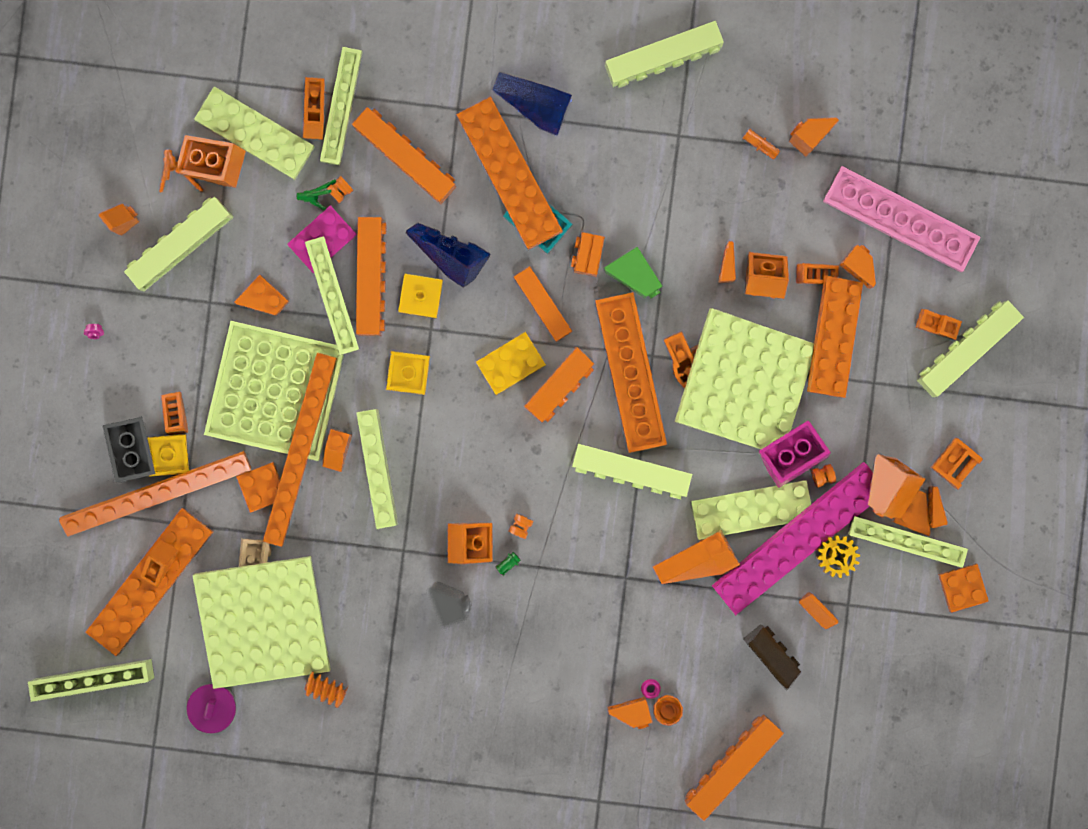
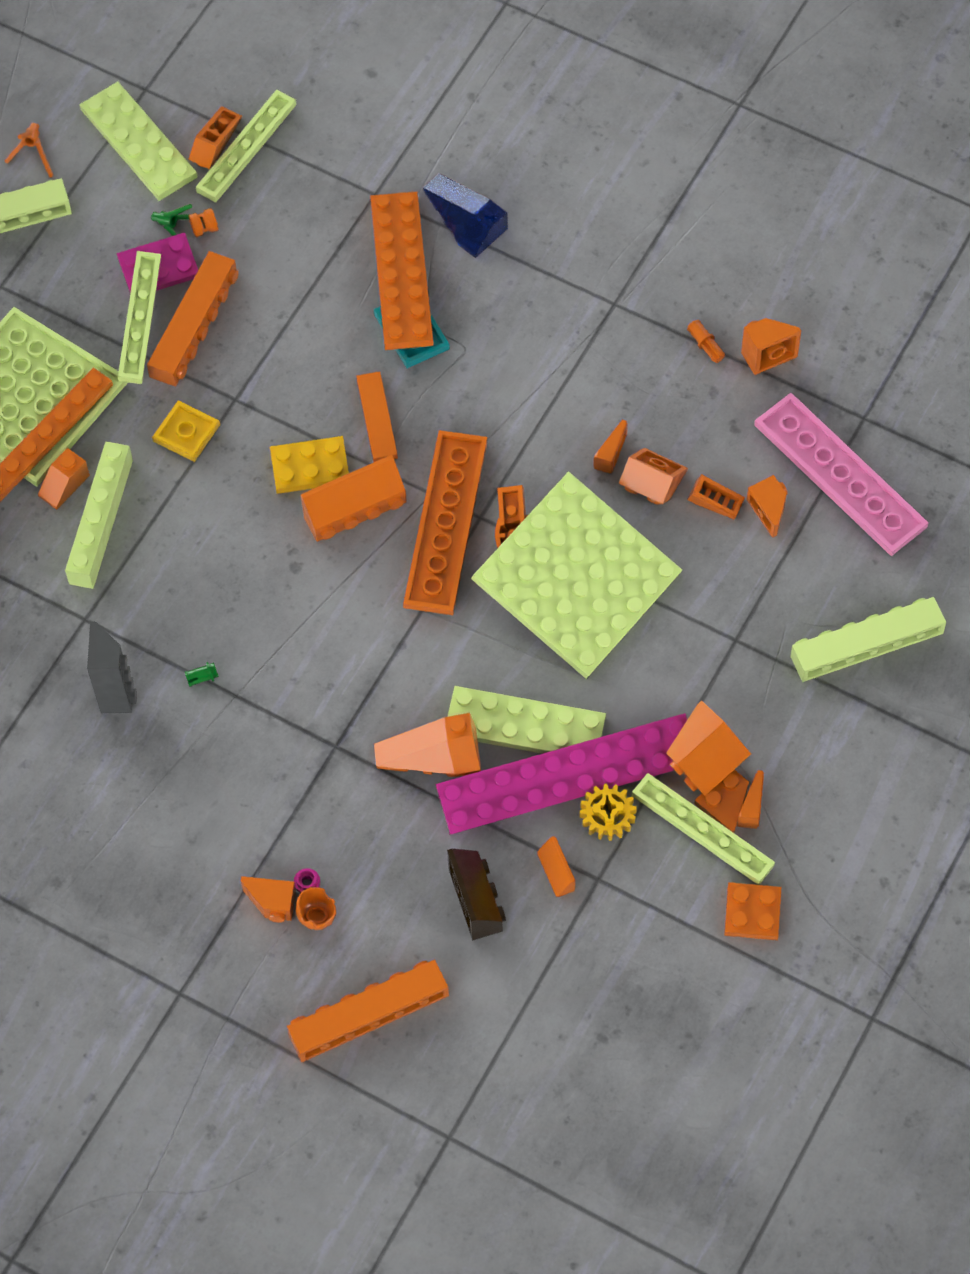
camera: 20 degrees right, 25 degrees down
(210, 160) = (77, 147): orange slope -> none
(262, 297) = (62, 300): orange wing -> none
(403, 155) = (292, 214): orange brick -> none
(420, 296) = (240, 360): yellow plate -> none
(455, 259) = (293, 330): clear blue wedge -> none
(470, 543) = (167, 633): orange slope -> none
(523, 522) = (236, 637): orange wheel -> none
(588, 254) = (453, 381): orange brick -> none
(631, 470) = (398, 625): yellowish green brick -> none
(635, 274) = (497, 419): bright green slope -> none
(664, 54) = (633, 214): yellowish green brick -> none
(794, 454) = (601, 673): dark pink slope -> none
(823, 475) = (622, 714): orange wheel -> none
(835, 337) = (707, 569): orange plate -> none
(938, 324) = (840, 602): orange slope -> none
(951, 460) = (798, 754): orange plate -> none

